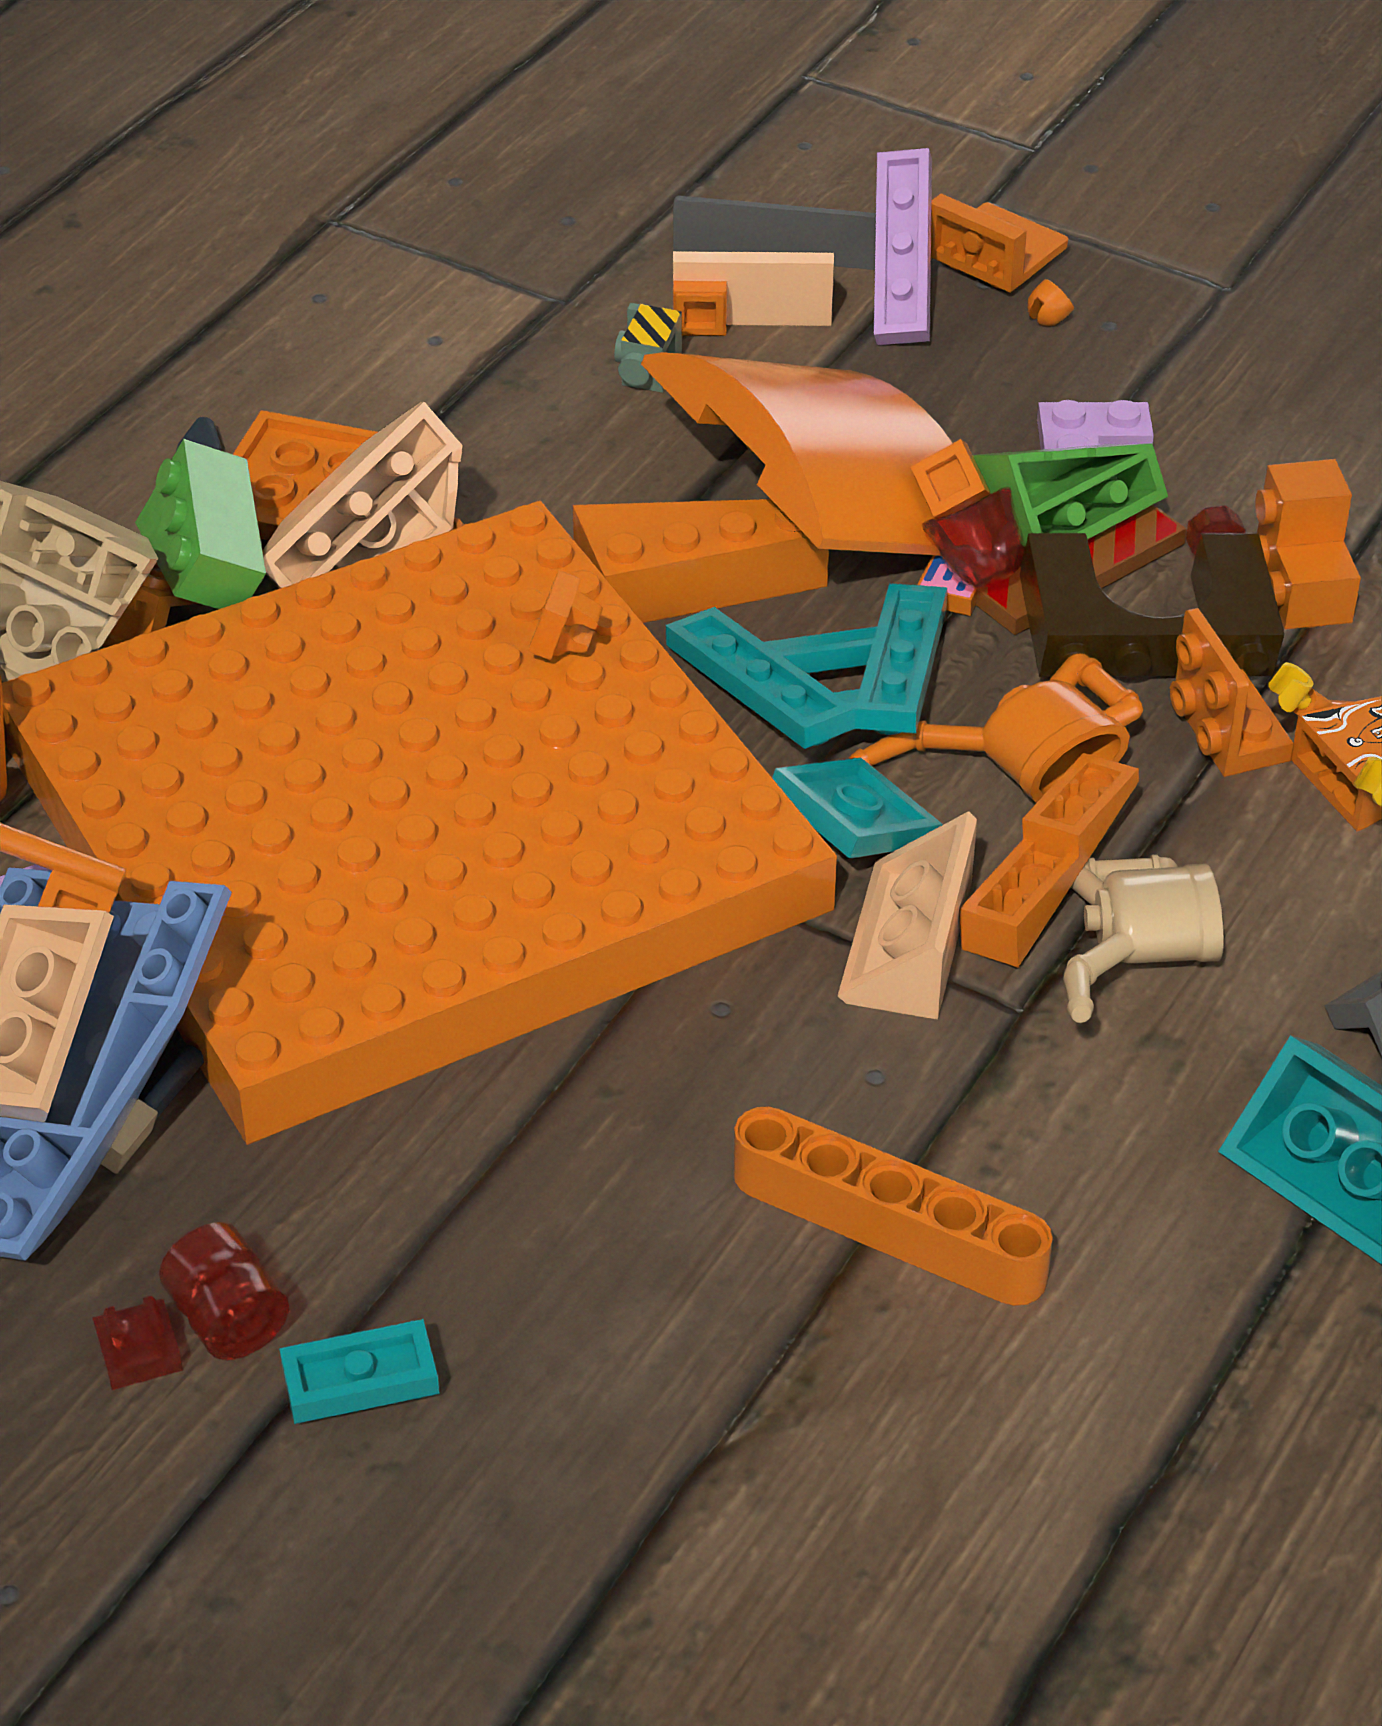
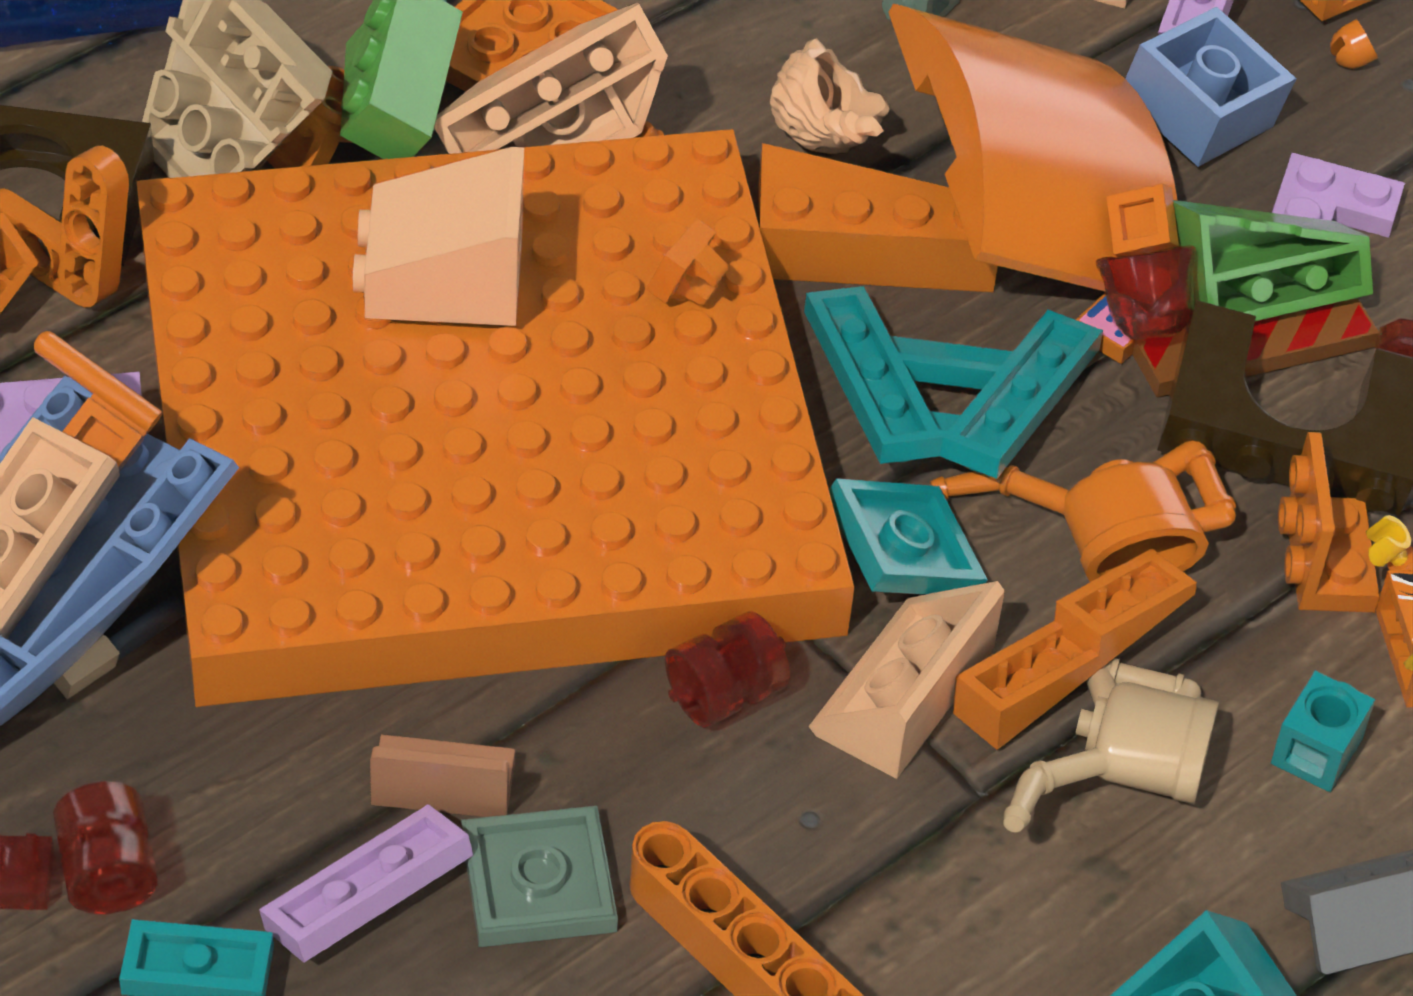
camera: 15 degrees right, 5 degrees up
(331, 653) = (445, 243): none -> light nougat slope
(491, 1249) = (366, 882): none -> lavender plate
(519, 1136) = (441, 774): none -> nougat panel
(610, 463) = (825, 102): none -> light nougat hair
(648, 1198) = (539, 876): none -> sand green tile
(746, 963) = (721, 671): none -> clear red wheel
(946, 360) = (1209, 85): none -> medium blue brick
(1301, 867) = (1322, 731): none -> teal brick

